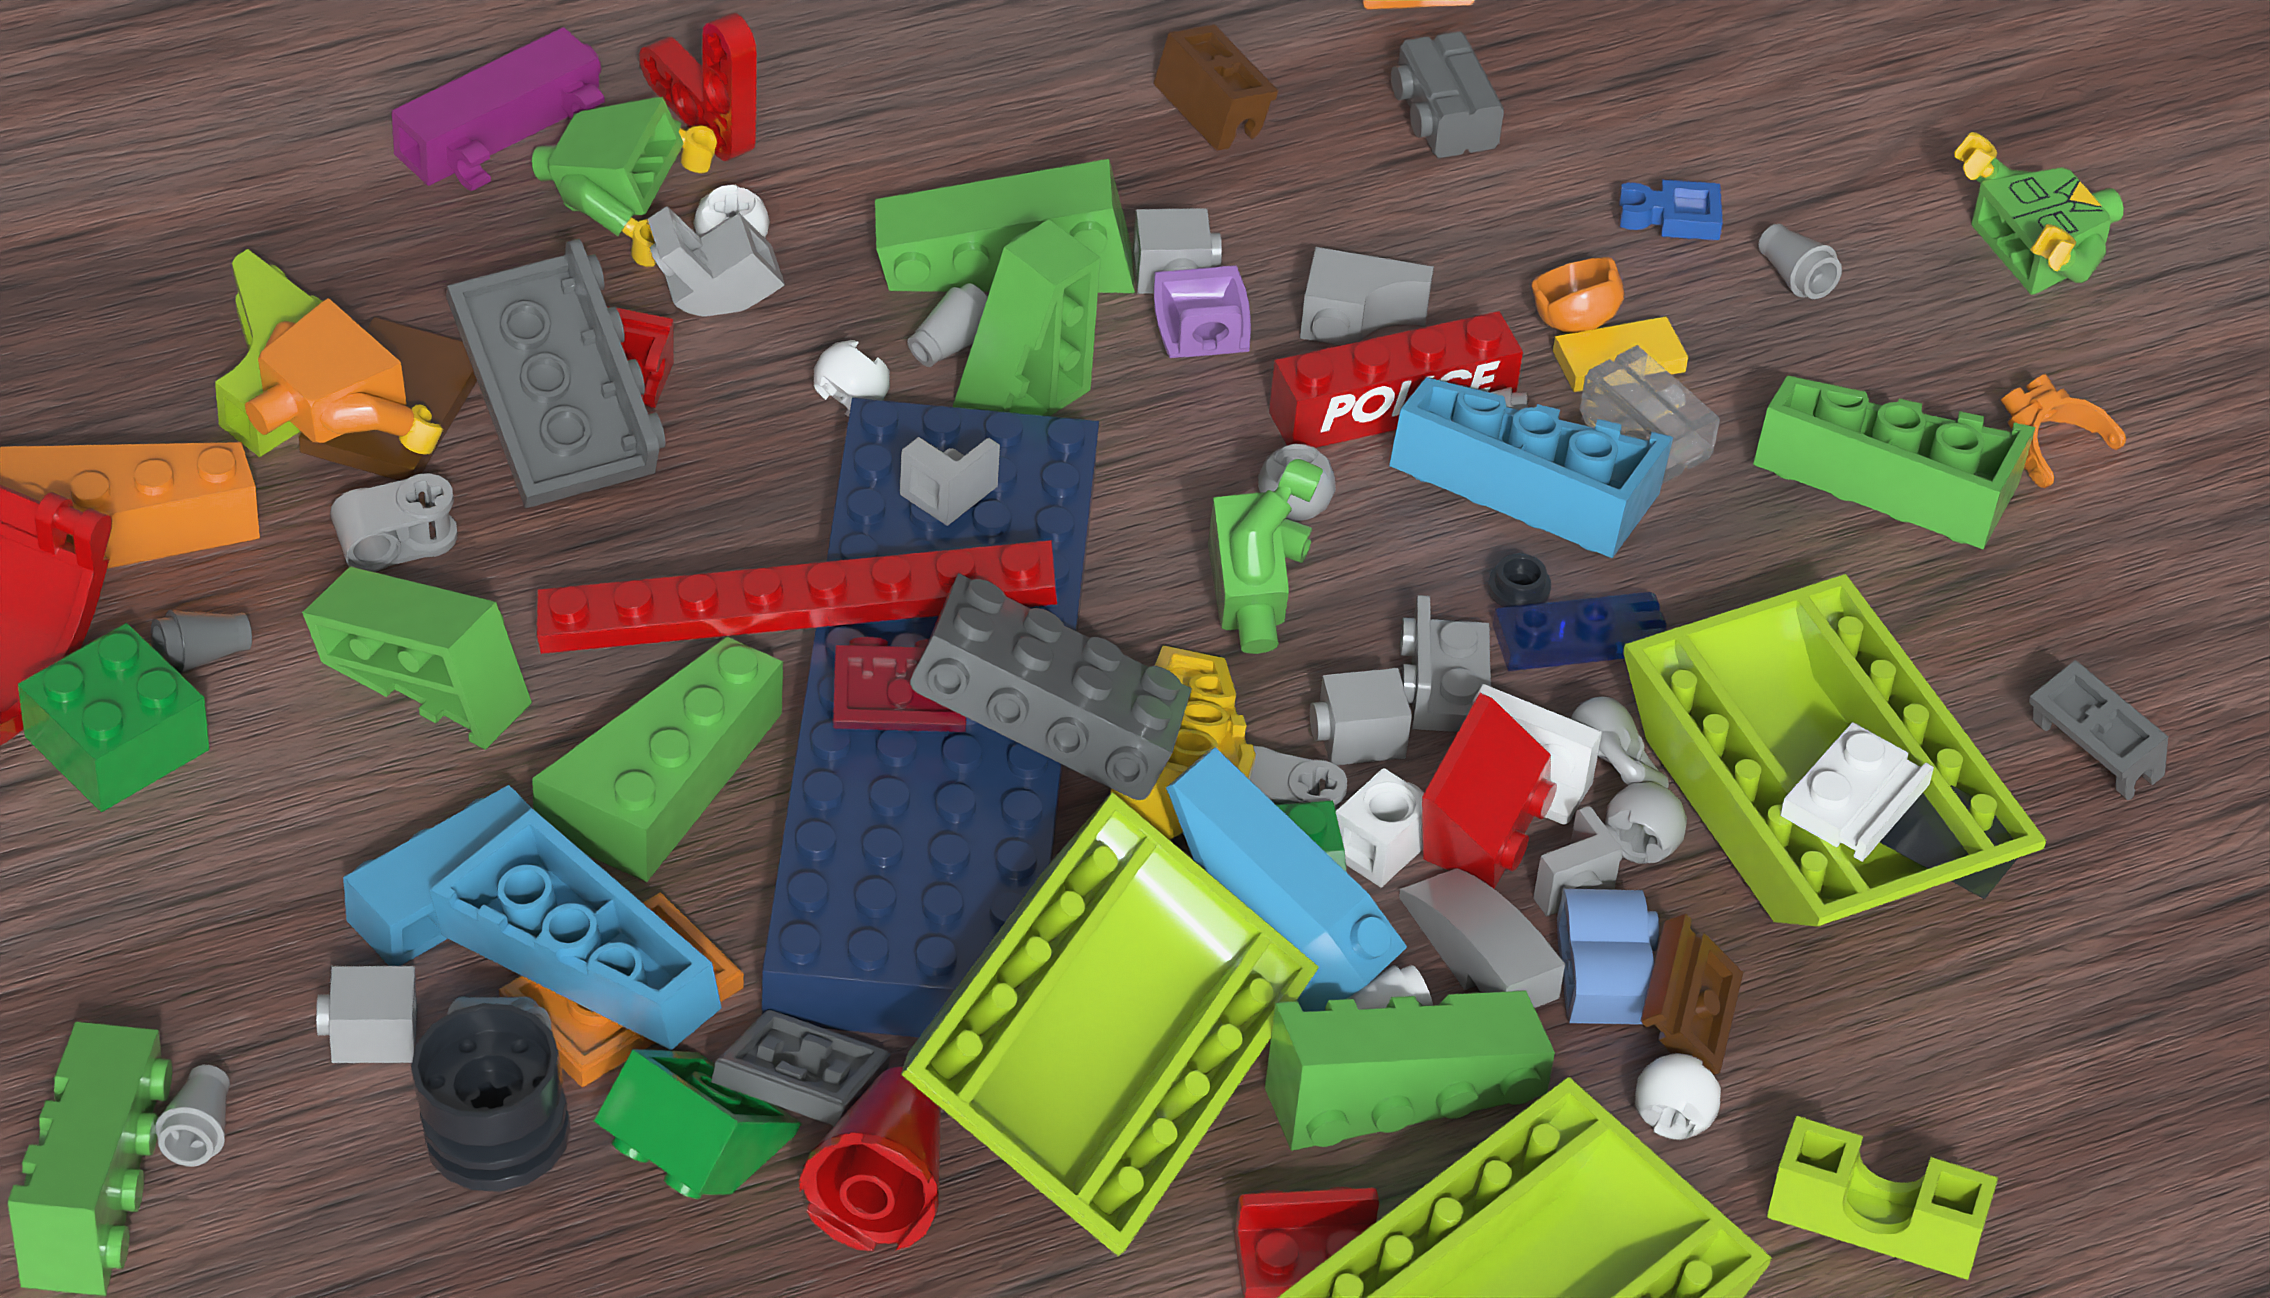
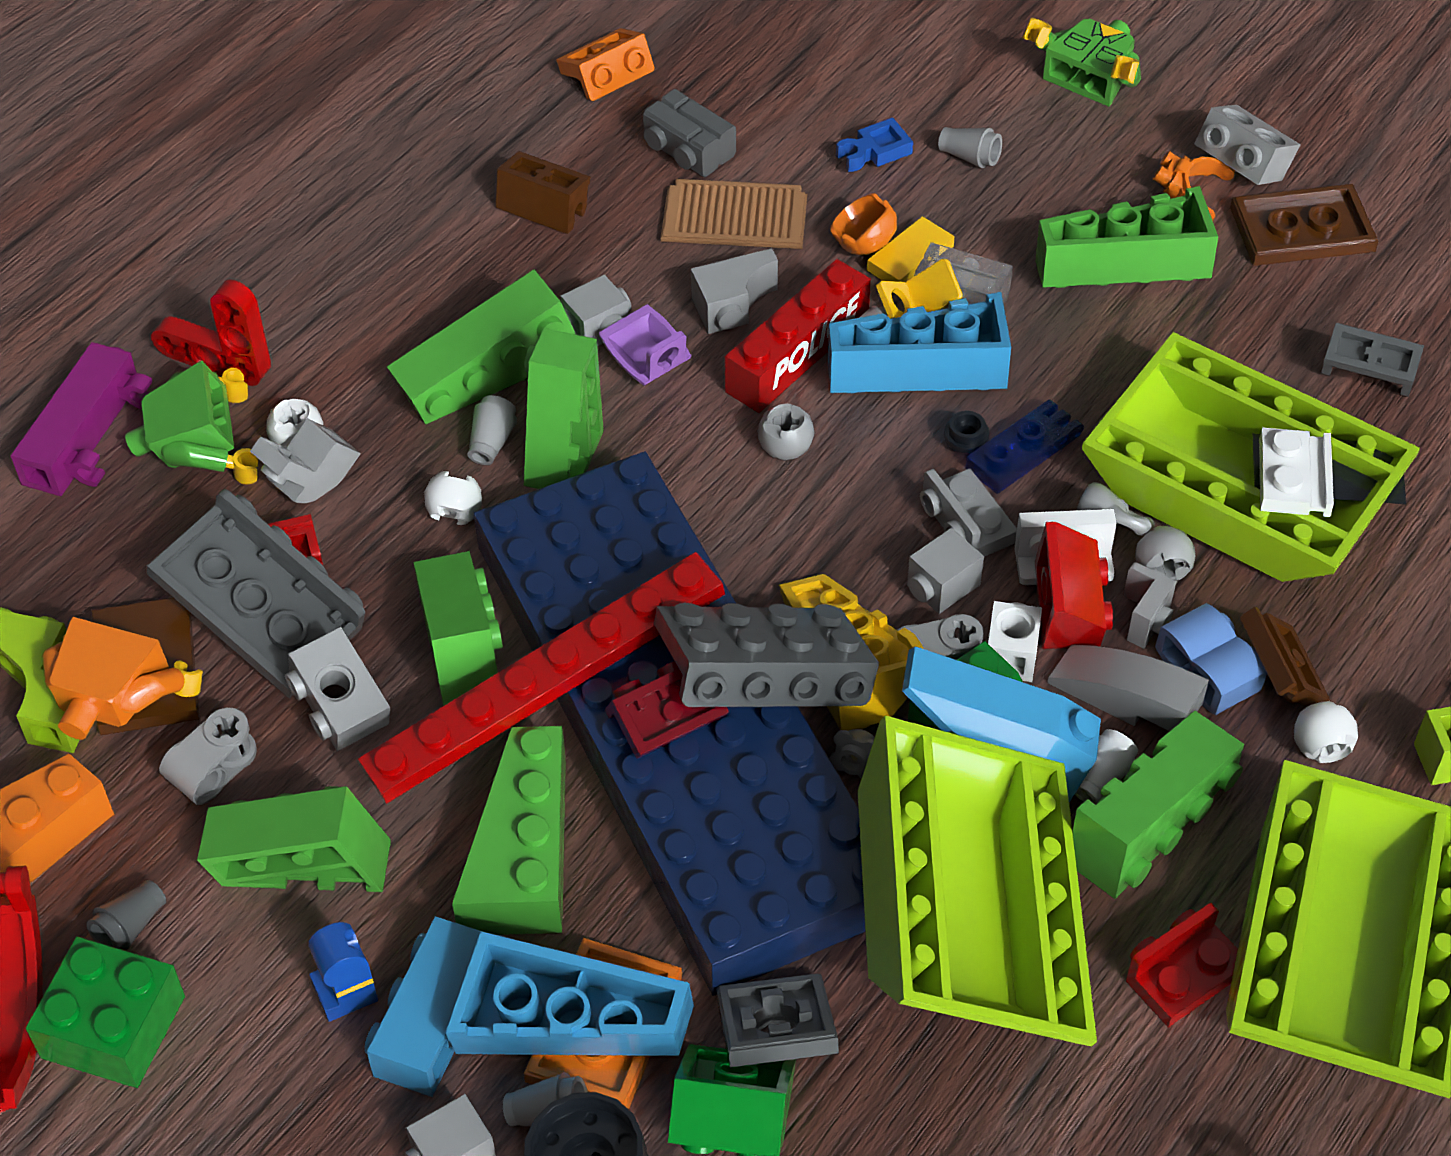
camera: 25 degrees left, 5 degrees up
(376, 792) = (343, 972): none -> blue leg
(578, 482) = (336, 662): none -> light grey brick
(755, 501) = (458, 622): none -> bright green wedge
(878, 1168) = (884, 1062): red cone -> none
(948, 481) = (587, 542): light grey panel -> none
(1249, 555) = (811, 499): bright green torso -> none
(1440, 215) = (735, 214): none -> medium nougat window
(1580, 397) = (930, 289): none -> yellow bracket
(2157, 410) = (1247, 144): none -> light grey brick
(2164, 542) = (1303, 224): none -> reddish brown tile

